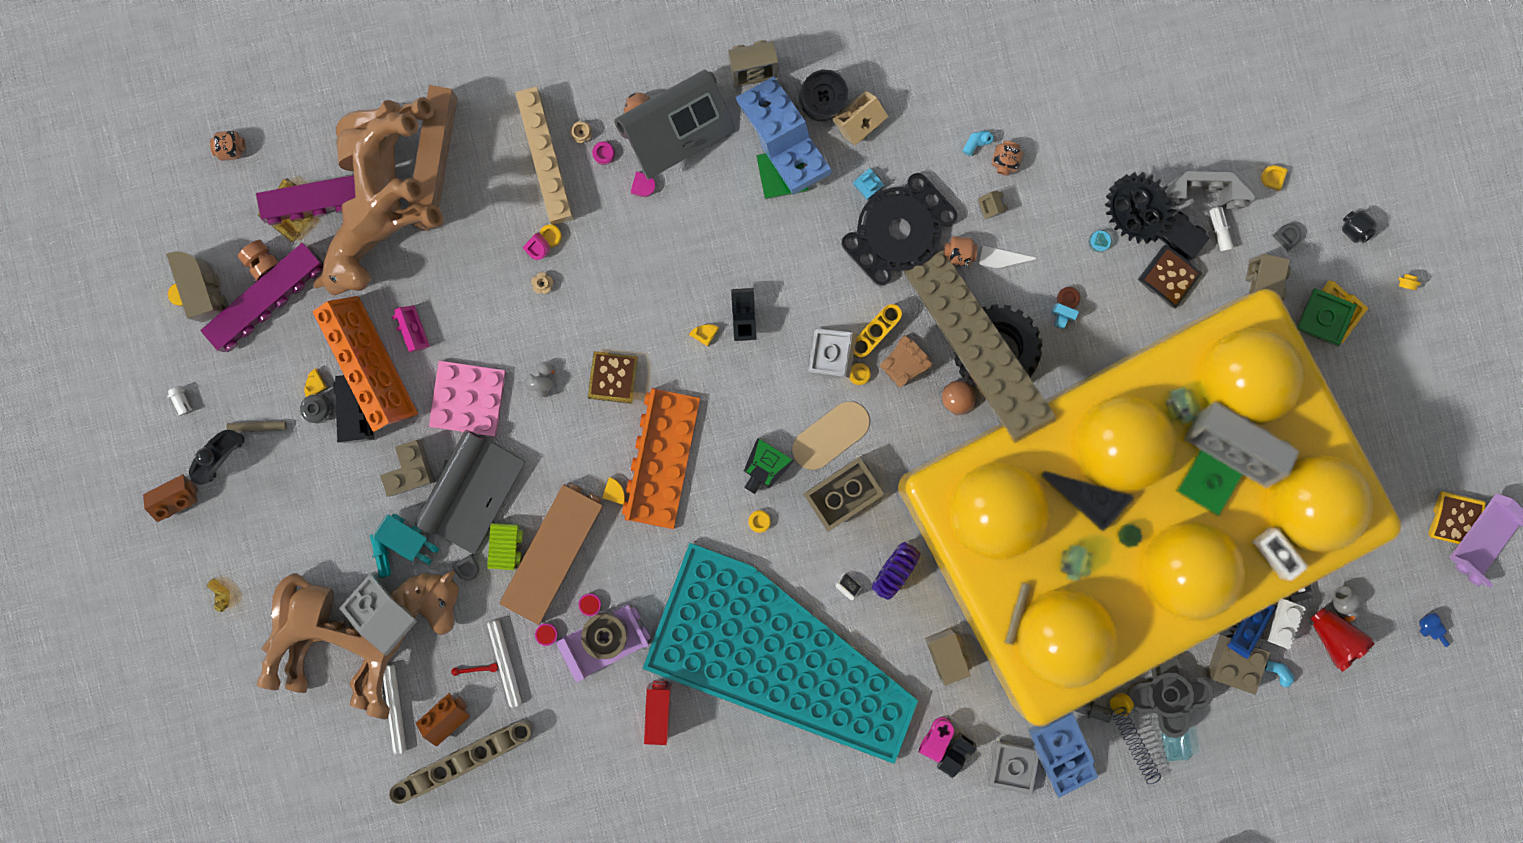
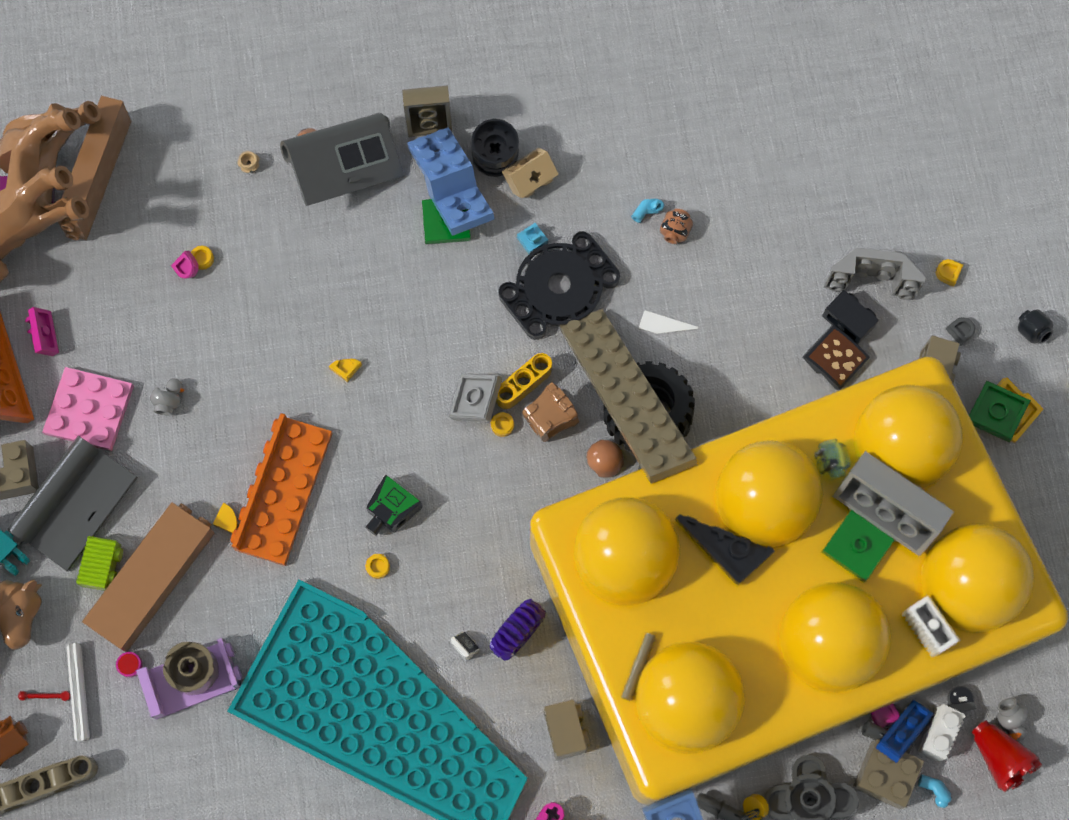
camera: 10 degrees right, 15 degrees down
(467, 568) = (56, 584): dark grey tile -> none
(544, 156) = (207, 180): tan brick -> none
(548, 282) = (185, 307): tan plate -> none
(589, 604) = (181, 633): red tile -> none
(603, 153) = (268, 184): dark pink tile -> none
(612, 377) = (243, 401): slope -> none
(642, 186) = (303, 218): dark pink tile -> none
(657, 713) = (235, 759): red brick -> none
(743, 314) = (388, 349): black brick -> none
(830, 435) = (465, 485): tan sticker -> none
(843, 494) = (470, 542): dark tan brick -> none
(961, 251) = (620, 310): nougat head -> none
(991, 204) = (656, 269): dark tan tile -> none
(1064, 314) = (722, 383): medium azure tile -> none
(1068, 297) = (728, 369): copper tile -> none
(1076, 562) = (706, 614): clear light blue head -> none
(1099, 241) = (765, 316): tile -> none
(1129, 535) = (767, 592): clear green tile -> none
(1140, 207) = (808, 282): black gear -> none
(1221, 229) = (892, 316): white axle -> none

